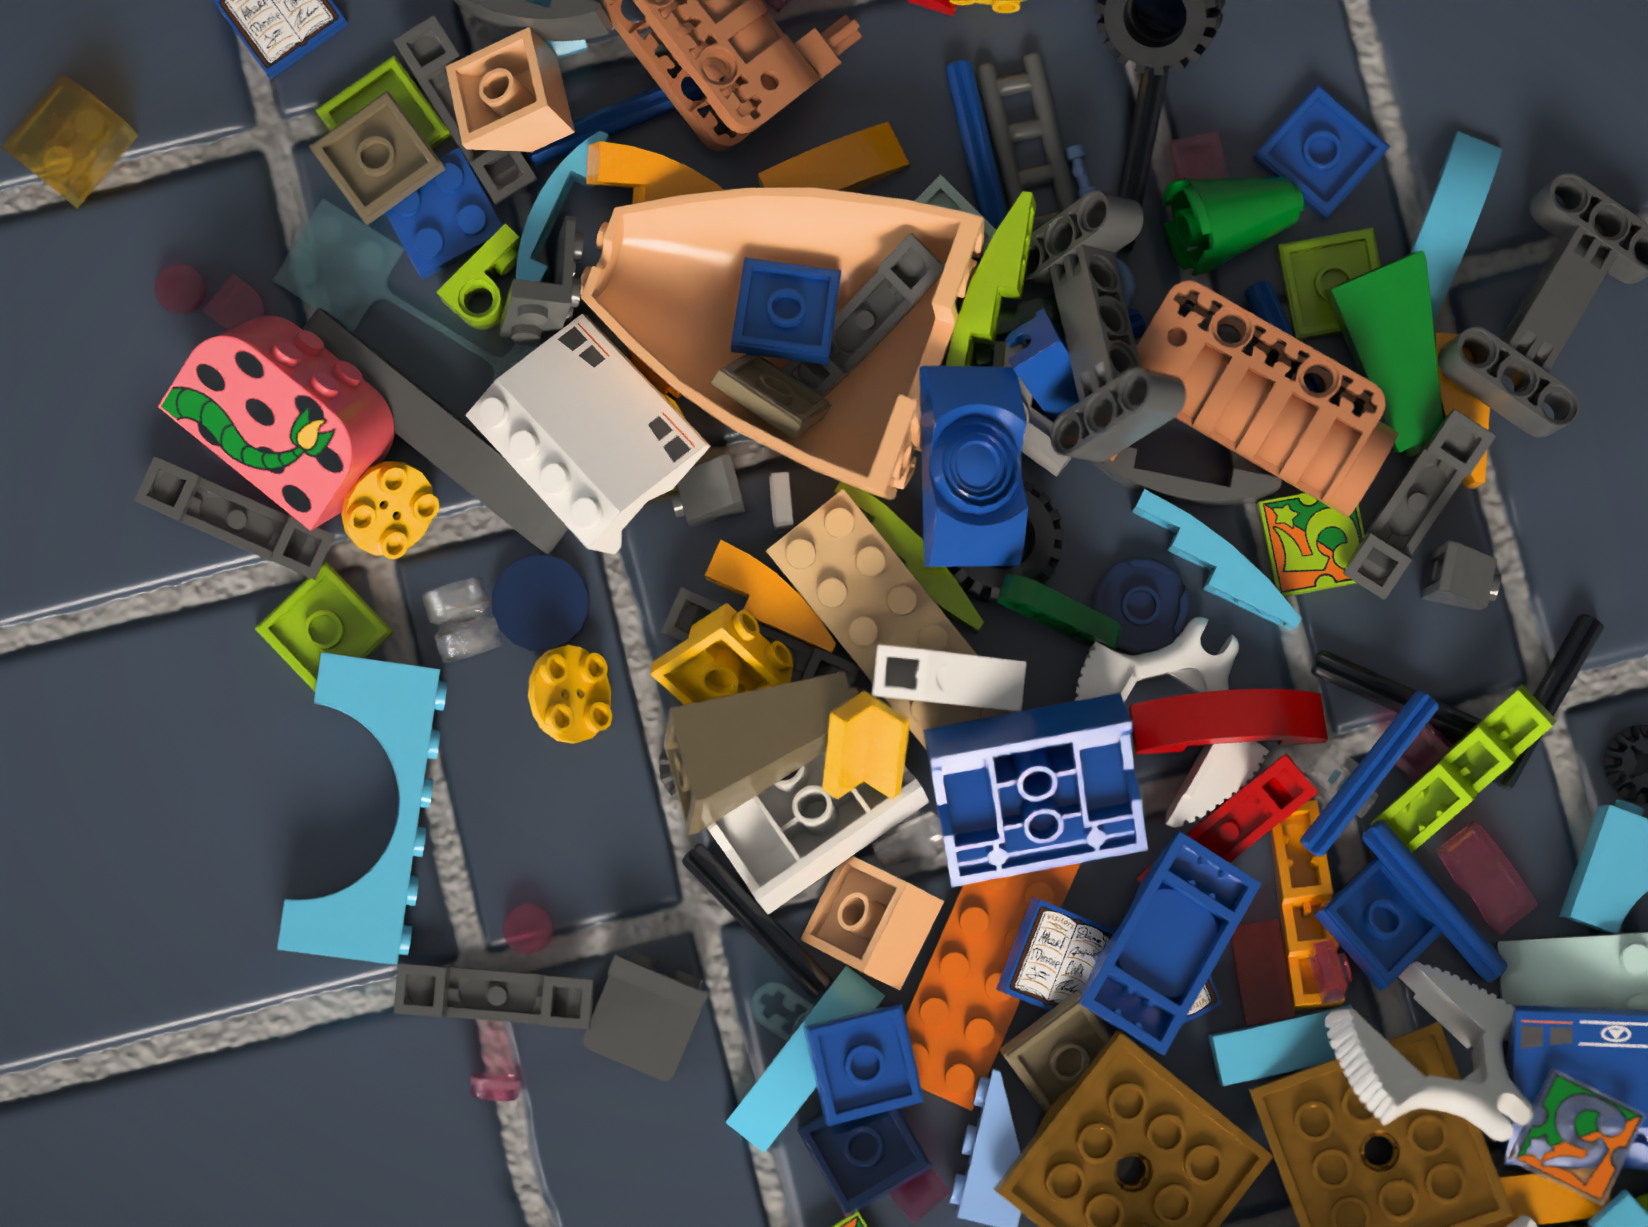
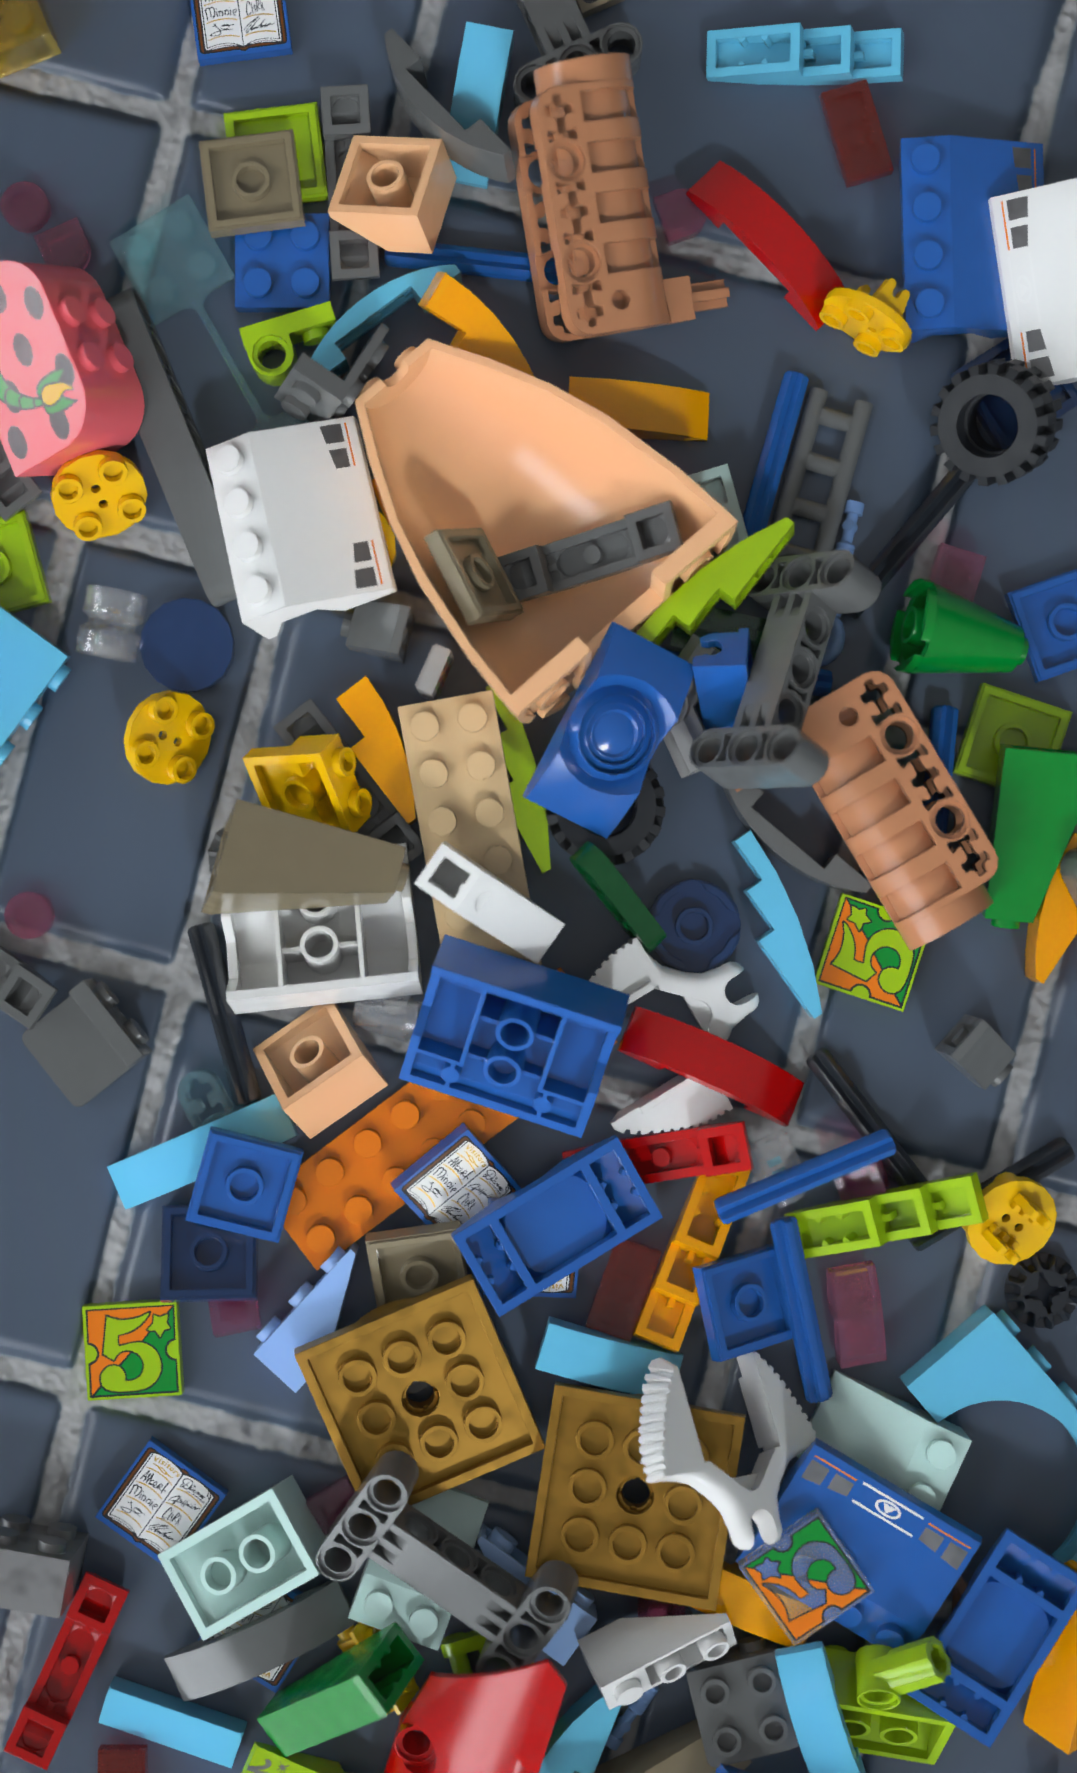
camera: 30 degrees right, 5 degrees up
(786, 311) = (528, 509): blue tile -> none
(865, 746) = (387, 919): yellow panel -> none
(1330, 971) = (679, 1322): clear pink plate -> none
(1417, 502) = (975, 969): dark grey slope -> none
(1582, 691) = (1025, 1204): none -> yellow plate

